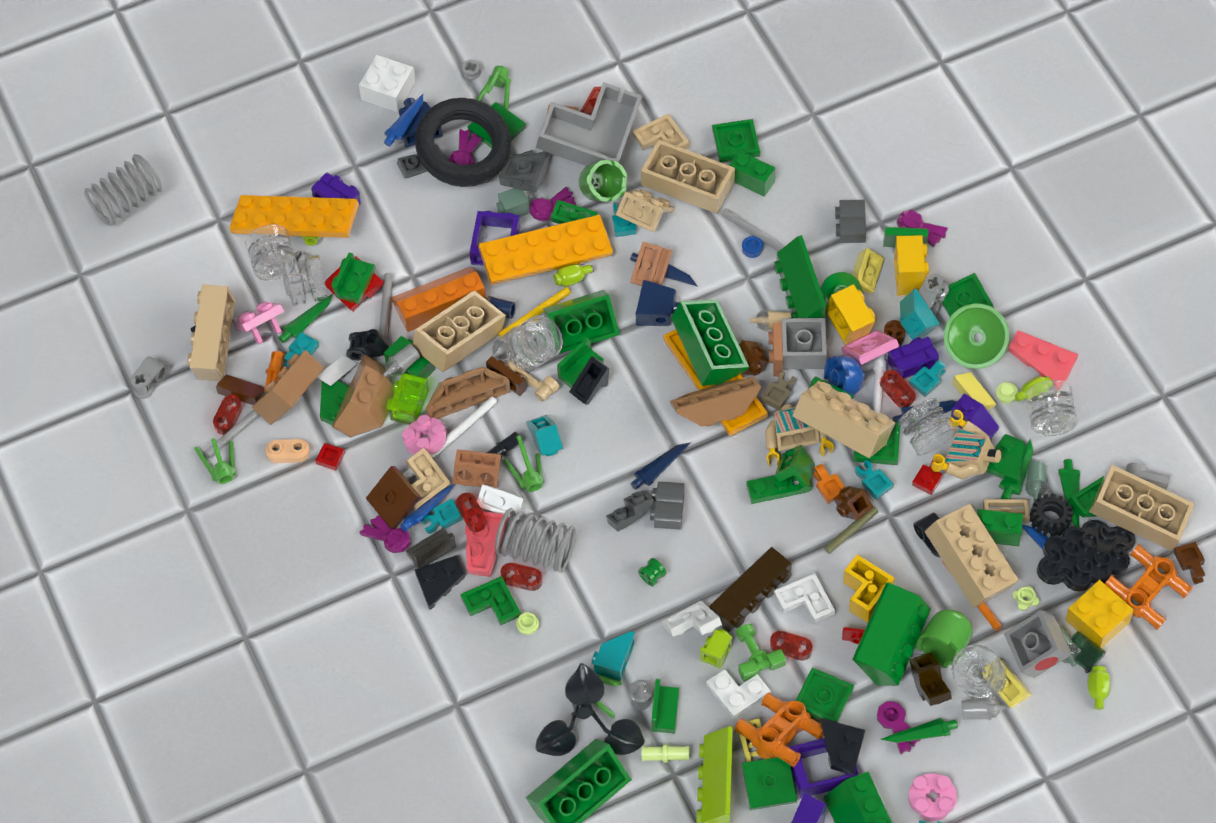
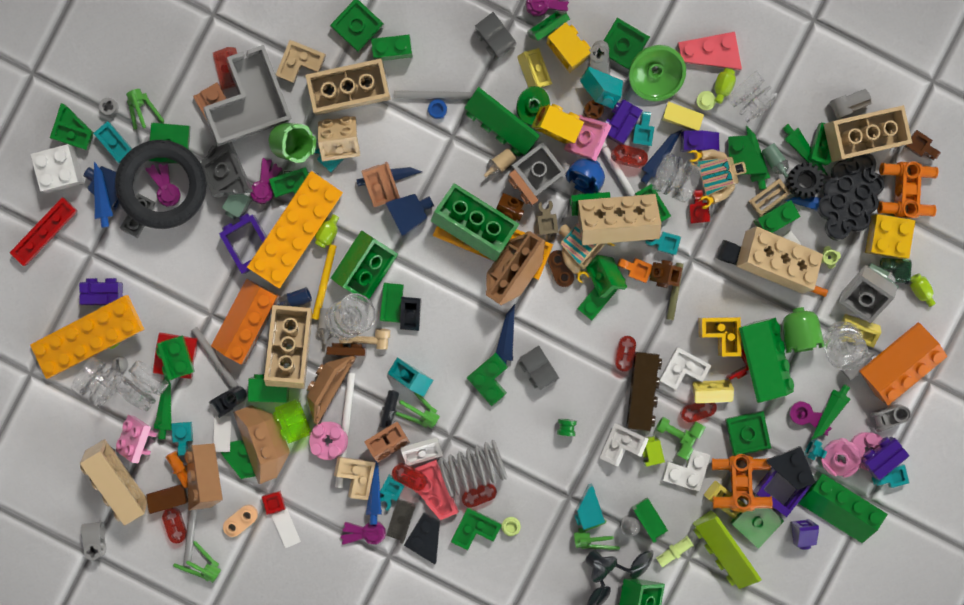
camera: 40 degrees left, 30 degrees up
(321, 487) = (286, 528): none -> white sticker
(332, 122) = (43, 231): none -> red plate
(393, 497) = (347, 506): reddish brown plate -> none
(401, 361) = (268, 403): light grey piece -> none
(425, 65) = (71, 129): none -> green wing
(451, 87) = (113, 141): none -> teal plate
(611, 480) = (484, 379): none -> green plate
(634, 508) = (517, 392): dark grey slope -> none
(756, 439) = (559, 269): none -> reddish brown plate
(757, 546) = (630, 353): none -> clear red beam
(817, 636) = (713, 391): none -> light yellow slope
(877, 752) = (814, 450): none -> teal plate
(911, 780) = (845, 448): none -> bright pink plate
(928, 679) = (814, 373): dark brown brick -> none
(942, 801) = (884, 457): none -> dark purple brick
(977, 777) = (886, 417): none -> light grey piece
(1026, 730) = (903, 363): none -> orange slope

